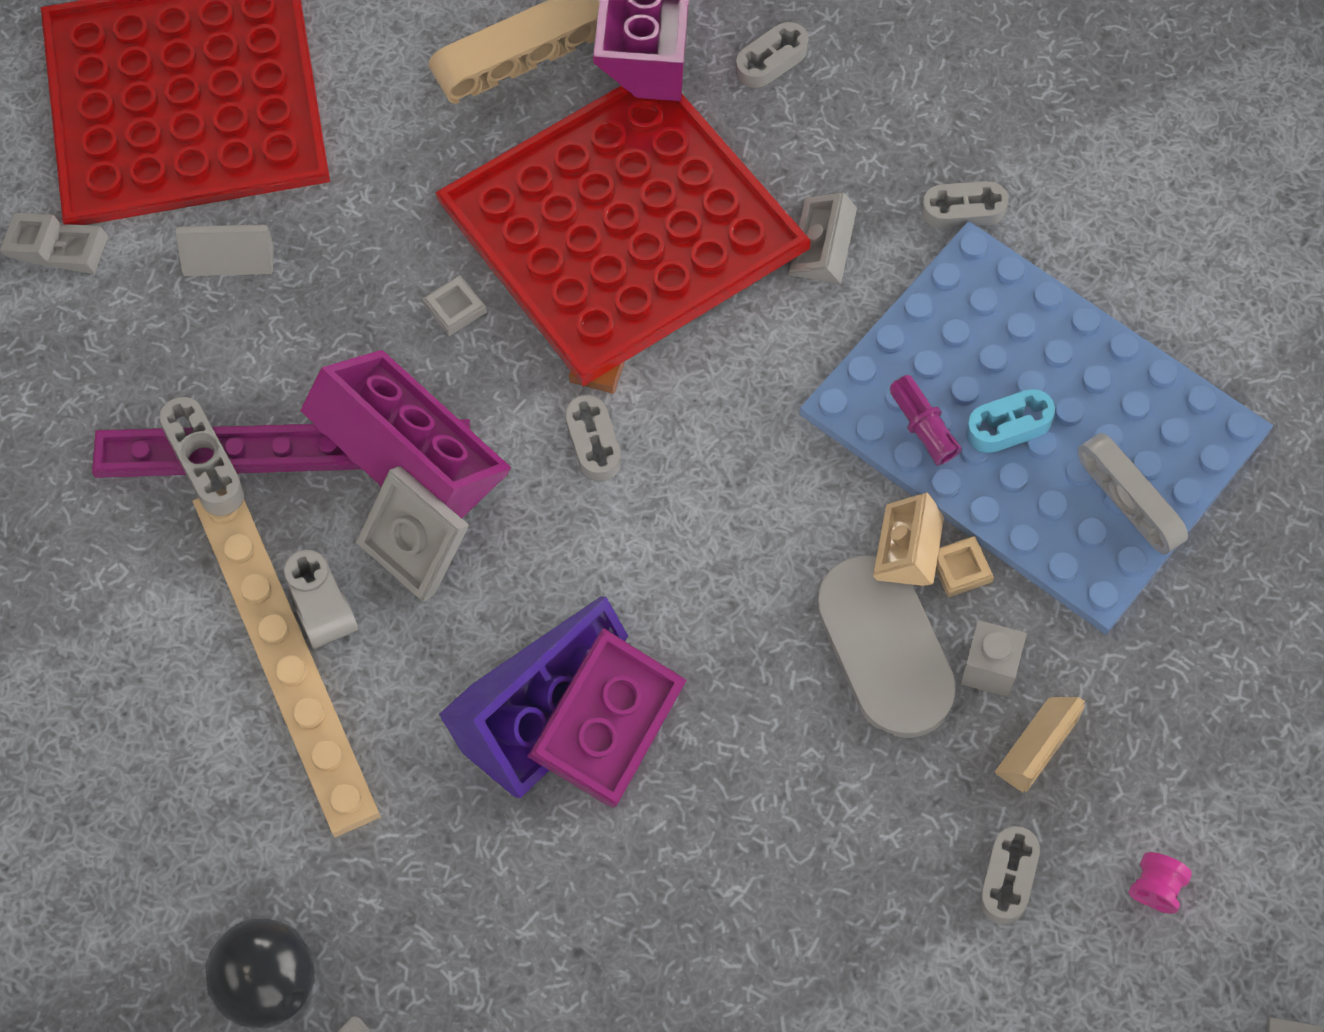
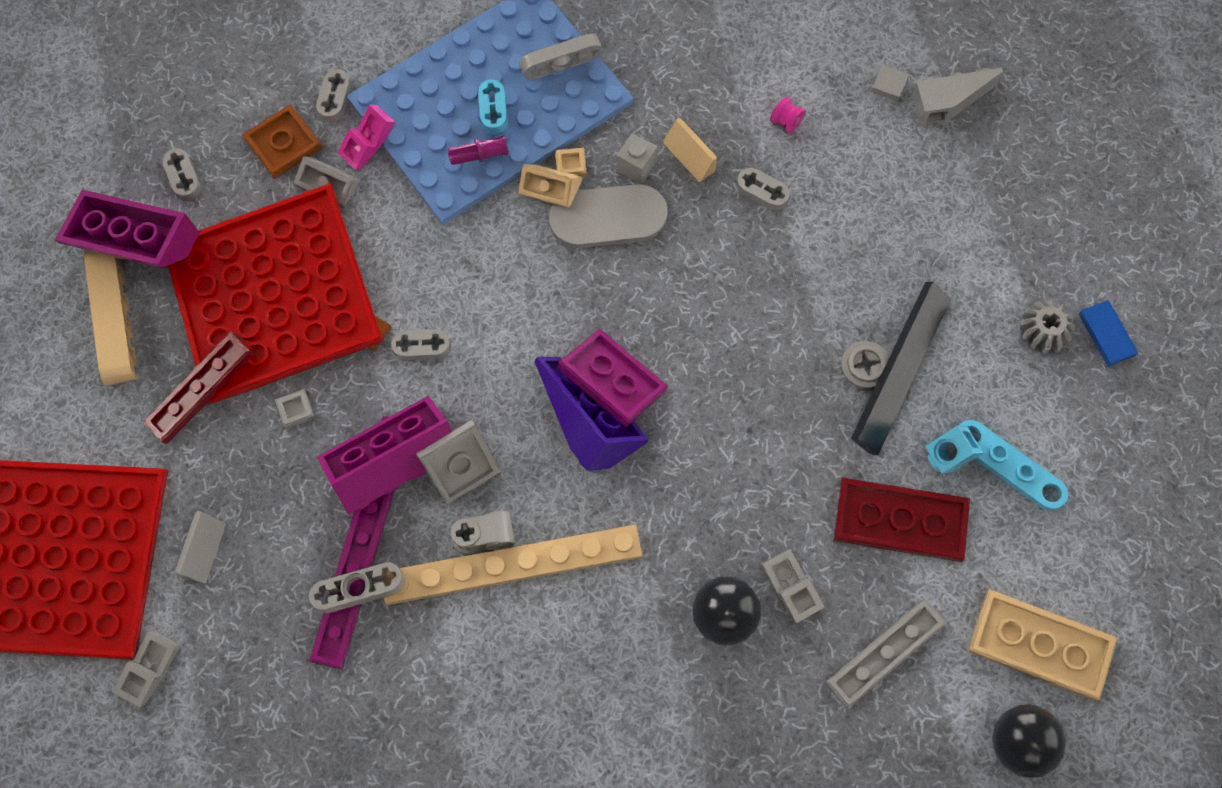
camera: 75 degrees left, 5 degrees up
(451, 176) = (198, 388): none -> tile
(867, 162) = (282, 141): none -> dark orange tile
(900, 267) = (364, 142): none -> dark pink slope

